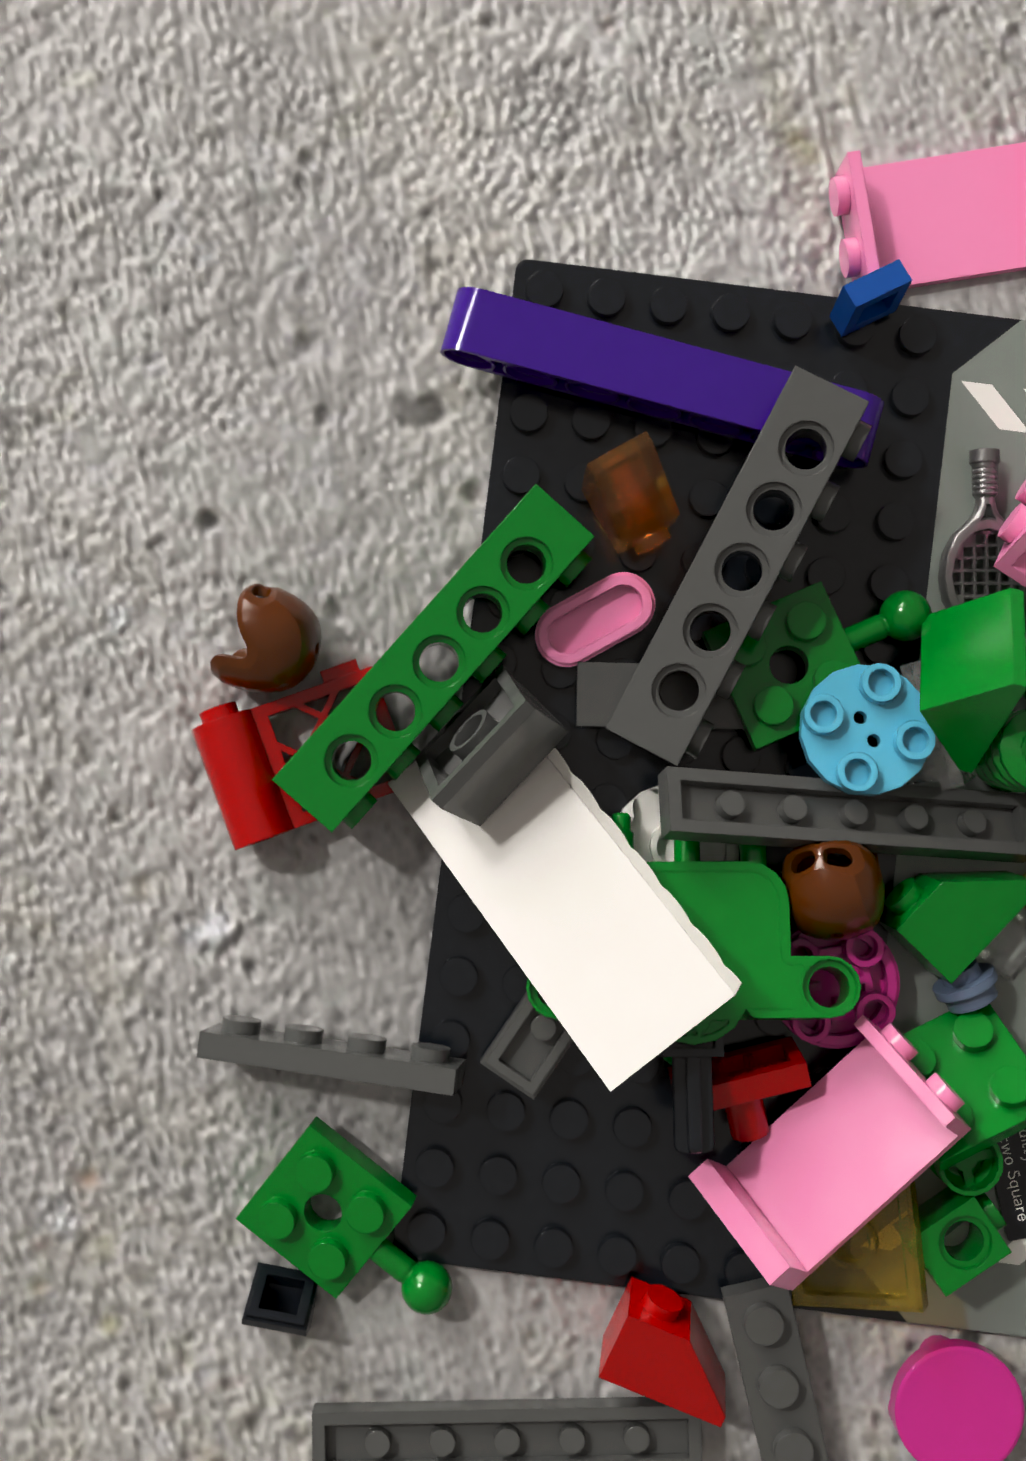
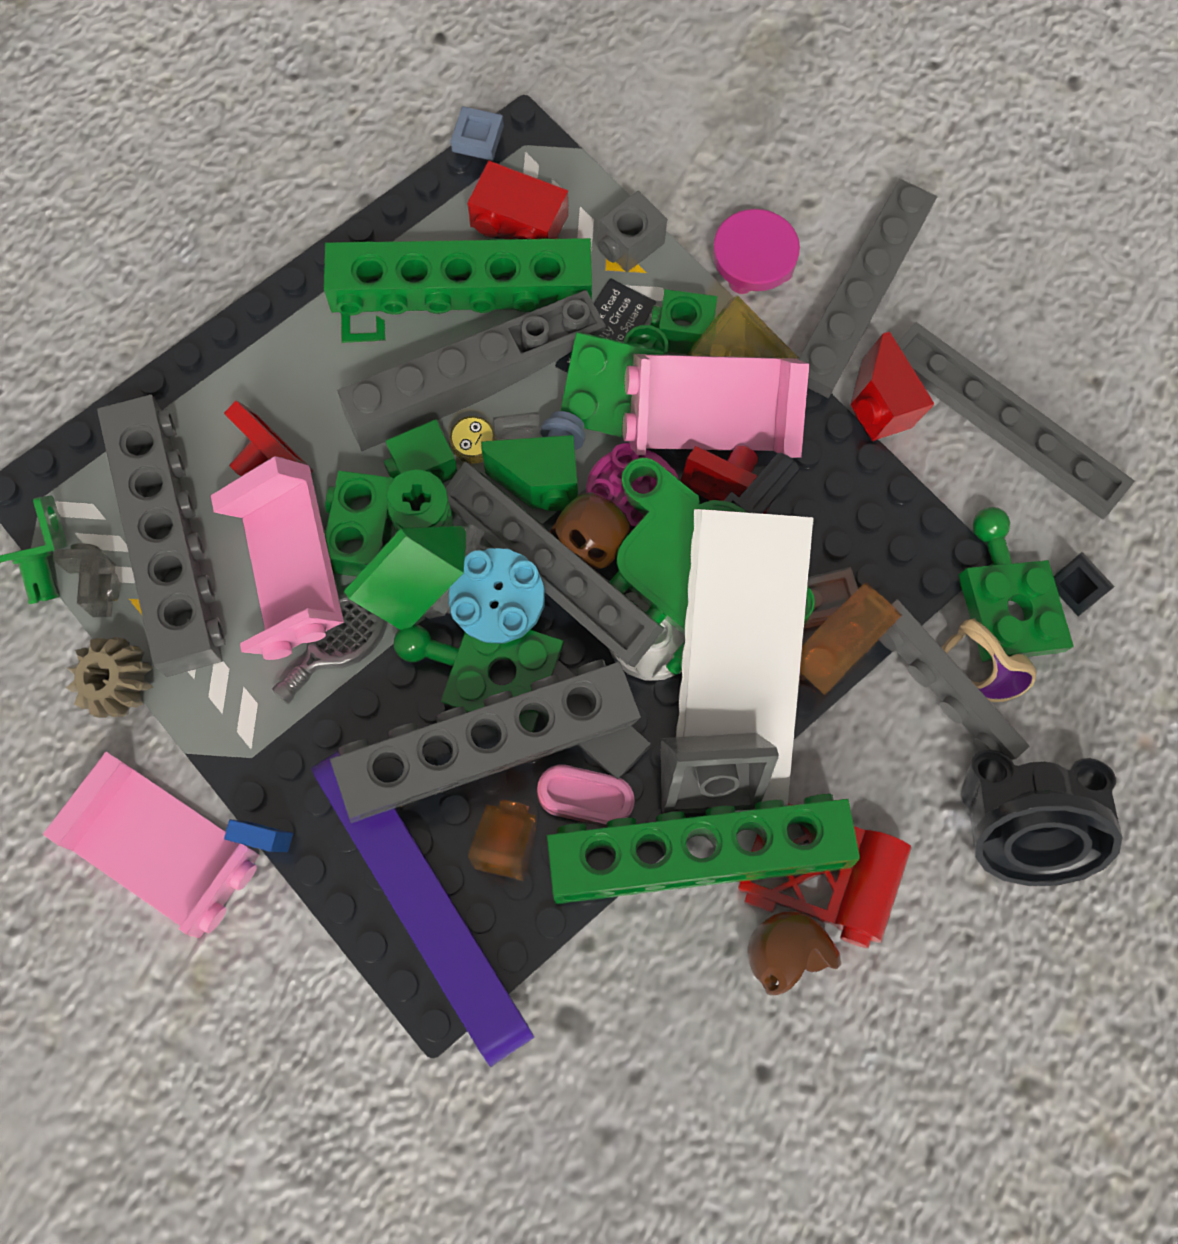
camera: 140 degrees left, 15 degrees down
(130, 993) = (1040, 819): none -> black piece
(278, 1118) = (1010, 675): none -> tan piece
(470, 1005) = (846, 638): none -> clear orange slope

